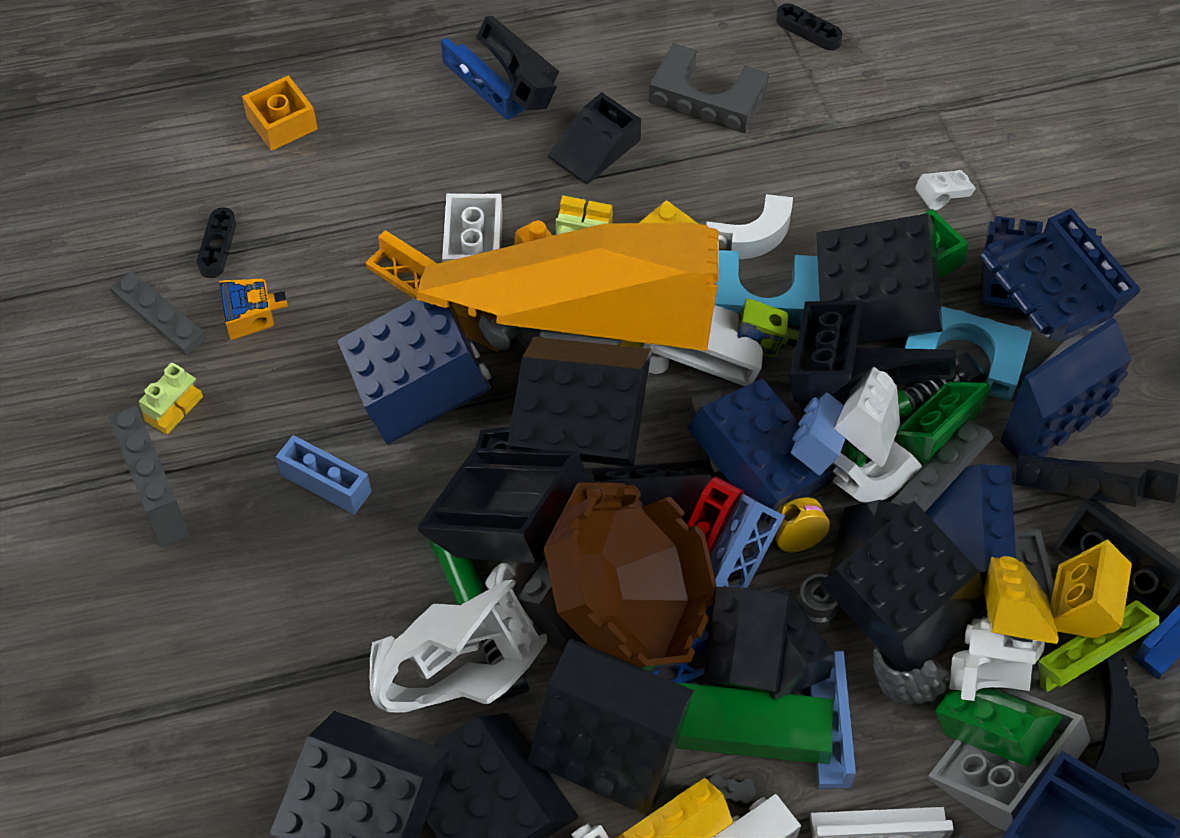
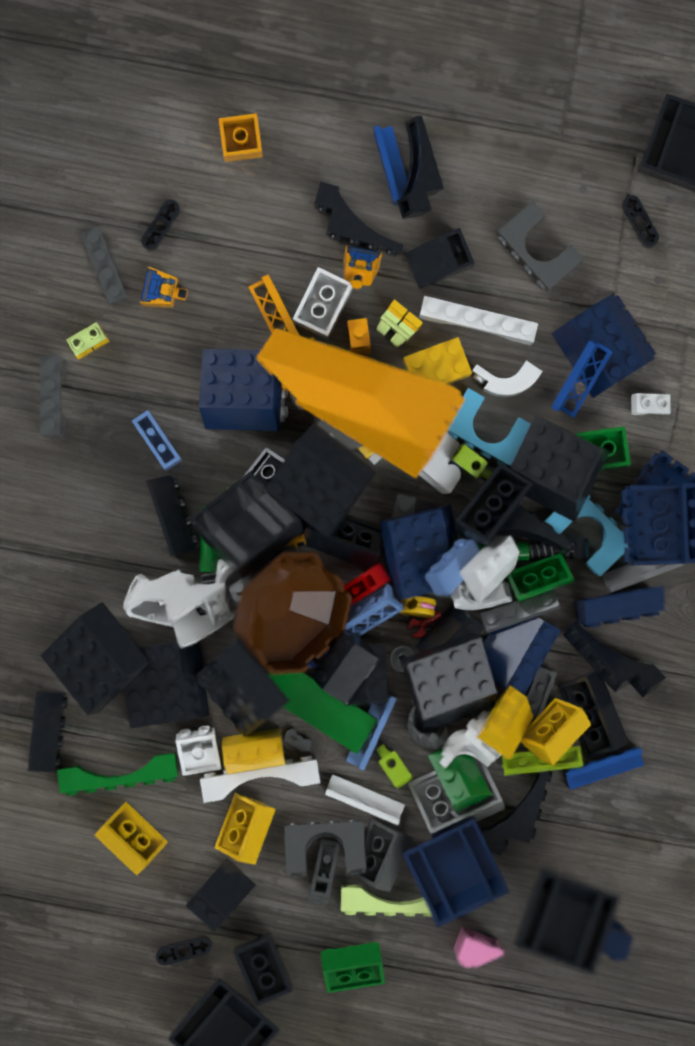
camera: 20 degrees right, 30 degrees up
(387, 559) = (171, 515): none -> black slope
(464, 152) = (347, 226): none -> black arch
(499, 178) = (360, 266): none -> torso
(728, 173) = (465, 316): none -> white arch
(819, 553) = (424, 623): none -> red bar
(837, 167) = (578, 370): none -> blue fence
(845, 155) = (613, 328): none -> dark blue slope
(898, 754) = (399, 774): none -> lime torso

